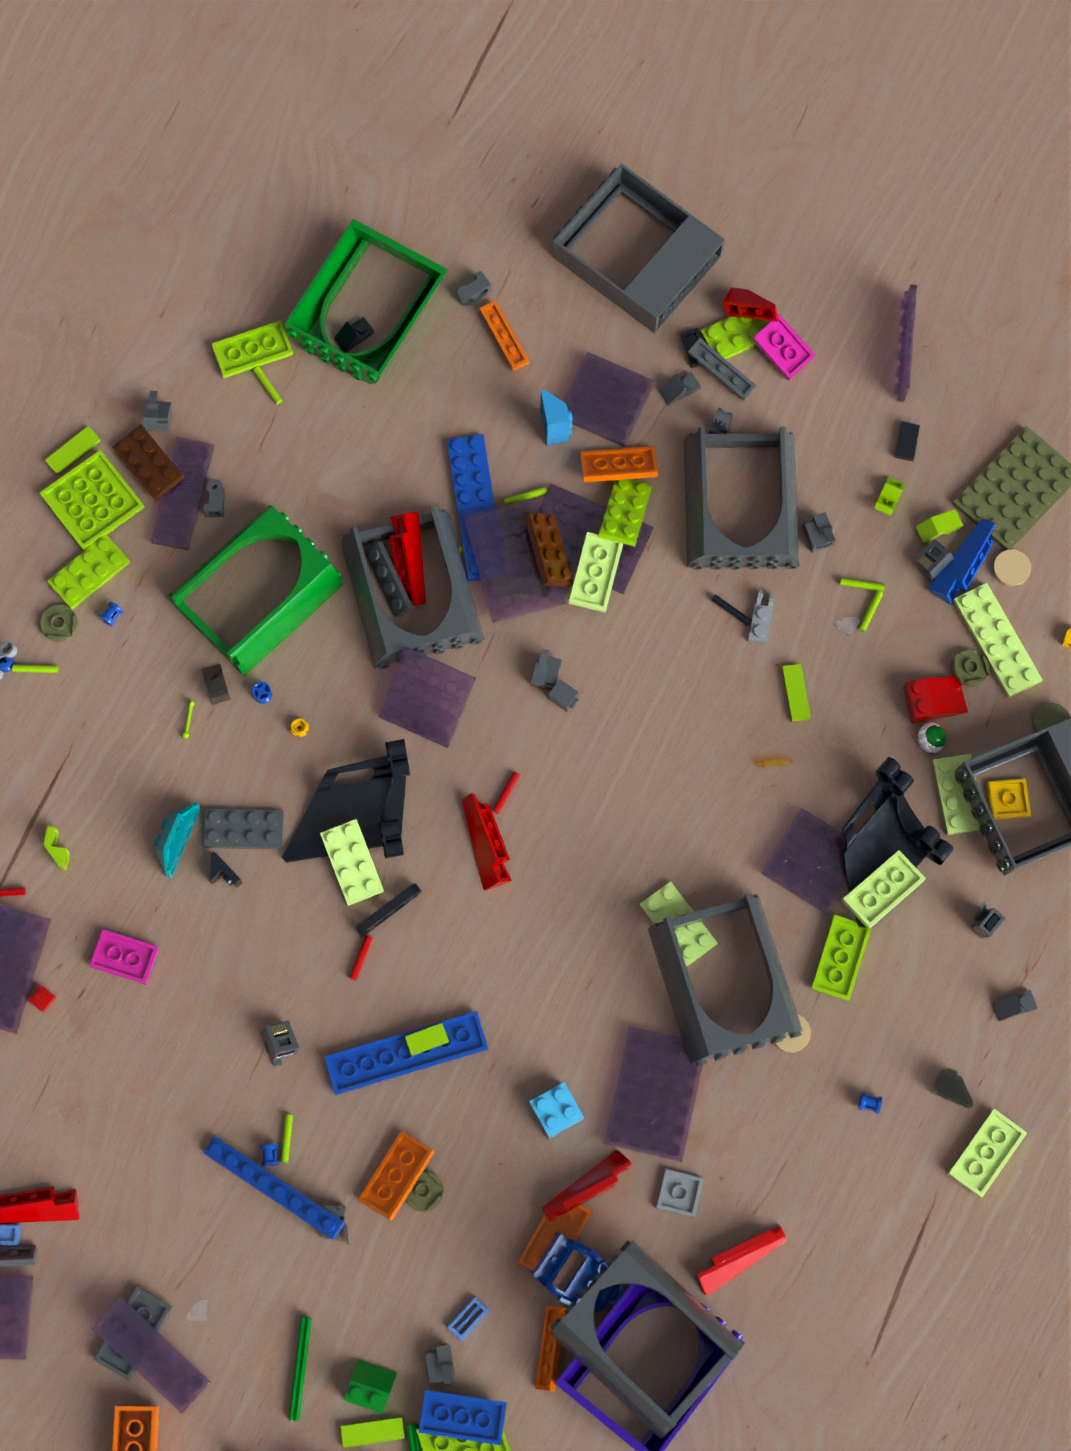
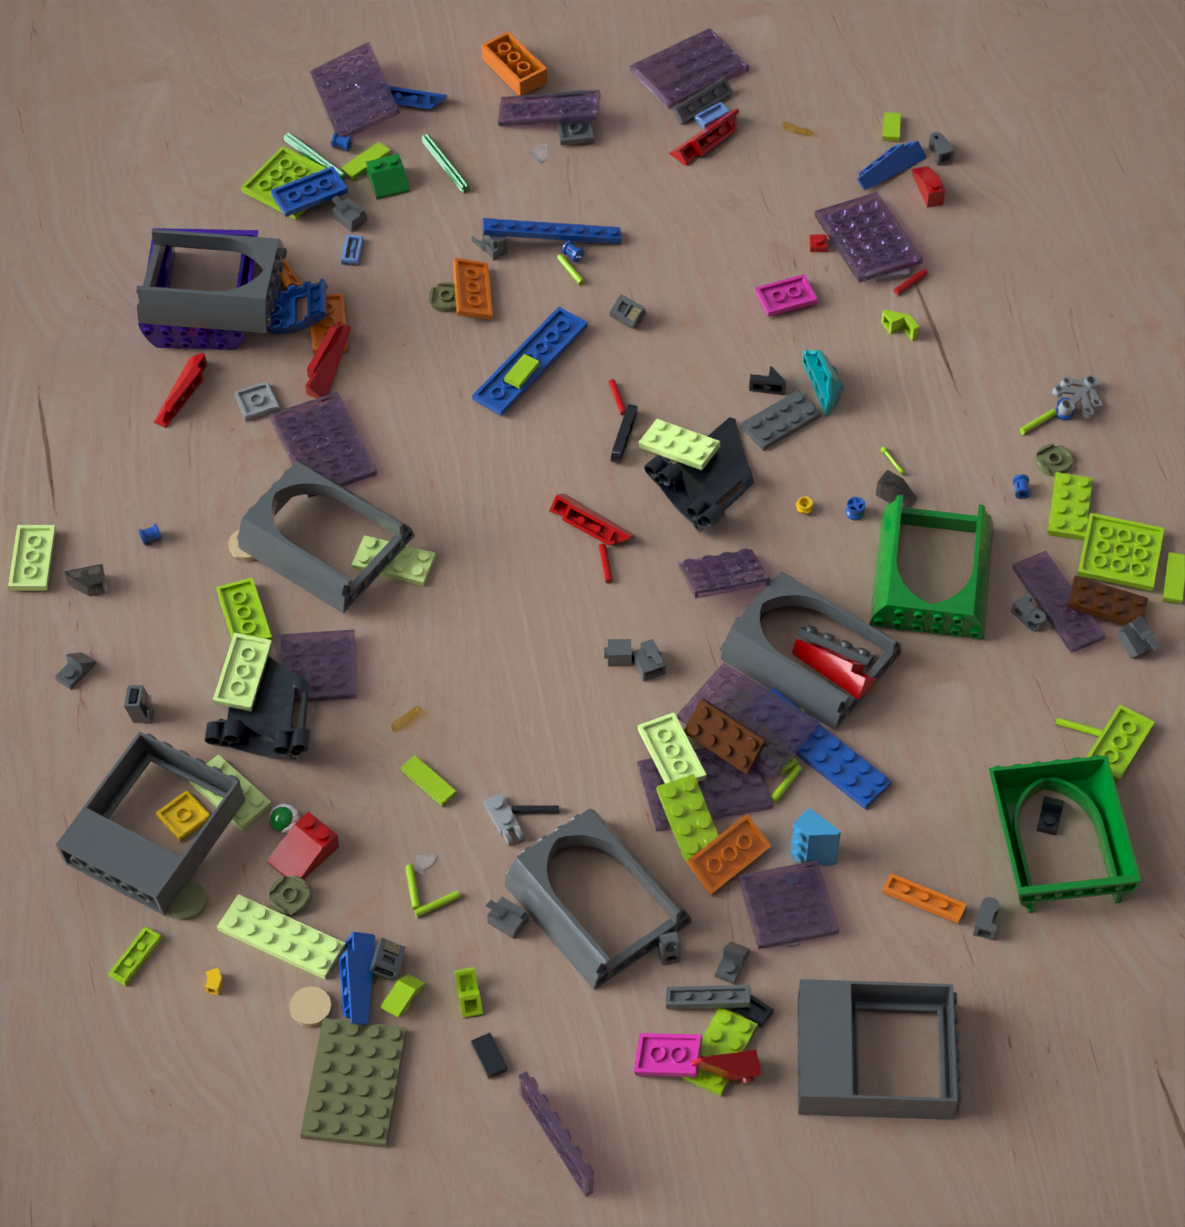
camera: 145 degrees right, 20 degrees down
(556, 1110) = (389, 389): medium azure brick -> none

